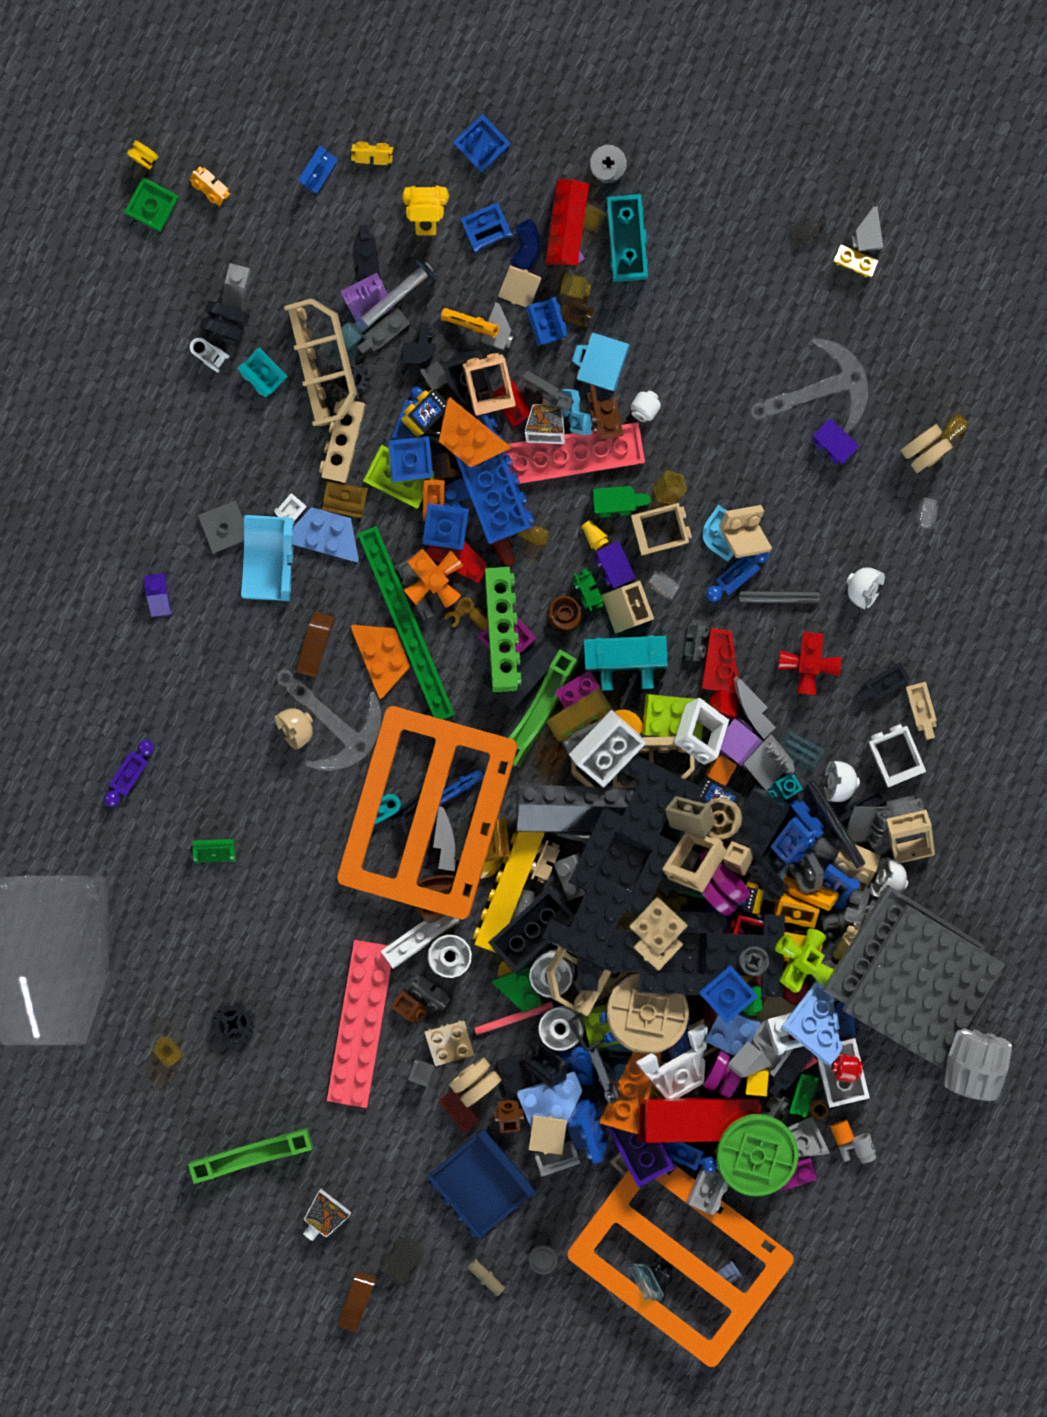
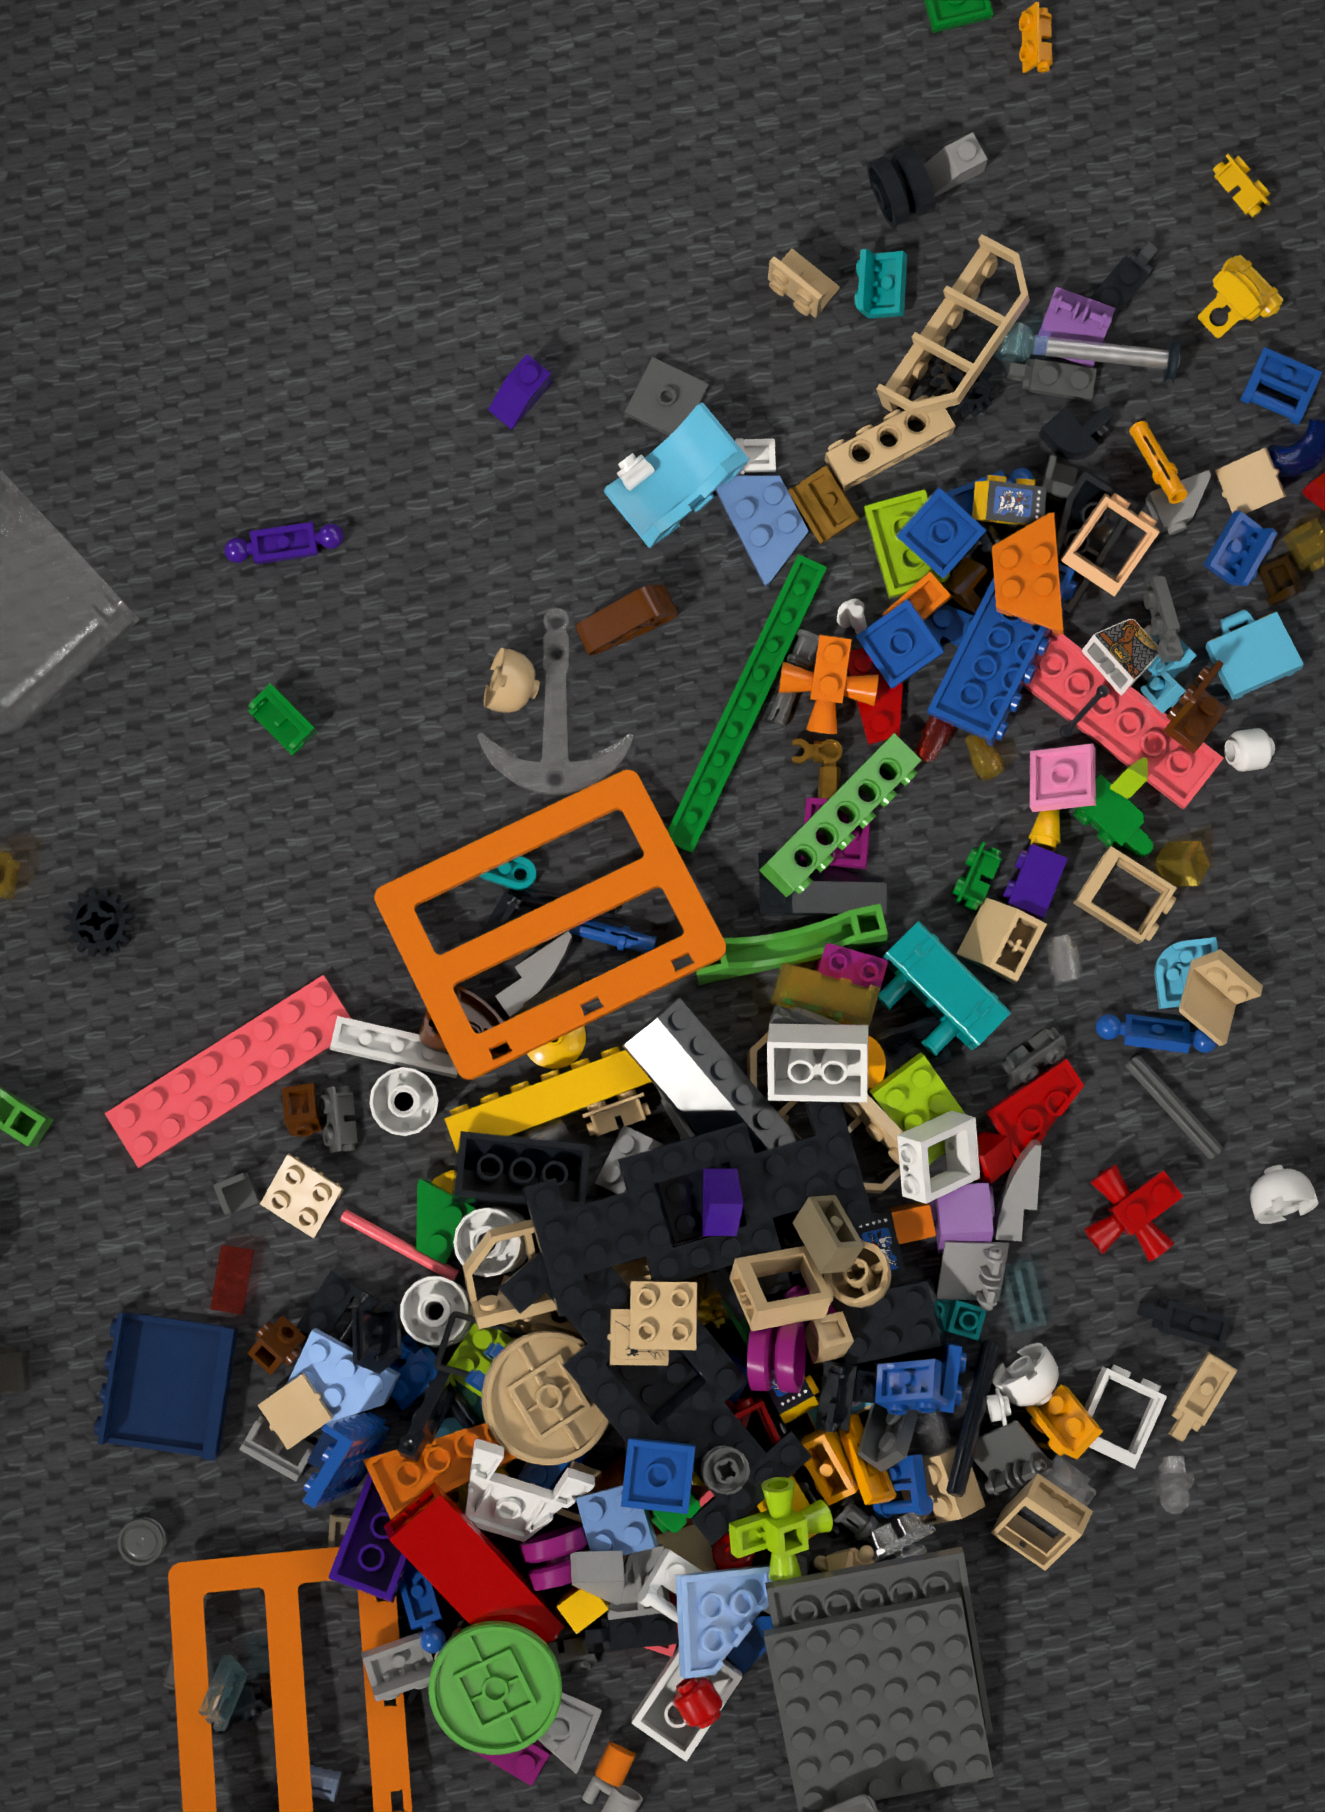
camera: 55 degrees right, 5 degrees down
(210, 354) = (847, 209): white piece -> none
(227, 409) = (801, 283): none -> tan bracket
(245, 574) = (634, 470): none -> white plate
(317, 170) = (1167, 138): blue bracket -> none
(382, 655) = (683, 710): orange wing -> none
(408, 534) = (852, 614): none -> white plate
(473, 1080) = (281, 1267): tan wheel -> none
(486, 1277) = (60, 1493): dark tan pin -> none
(500, 841) = (592, 1038): pearl gold plate -> none
(518, 413) = (1105, 609): red slope -> none
(557, 485) = (1066, 730): none -> black hinge
(565, 614) = (925, 875): reddish brown piece -> none
(578, 507) = (1062, 777): none -> bright pink plate
(608, 476) = (1131, 778): none -> lime slope
(631, 852) = (721, 1202): none -> dark purple slope
(803, 1094) = (618, 1675): green hinge -> none
(823, 1113) = (614, 1720): dark brown cone -> none
(841, 808) = (998, 1407): none -> white plate
(876, 784) = (1065, 1423): none -> light orange bracket
(889, 873) = (974, 1534): white cylinder -> none
(949, 760) = (1173, 1484): none -> clear hips

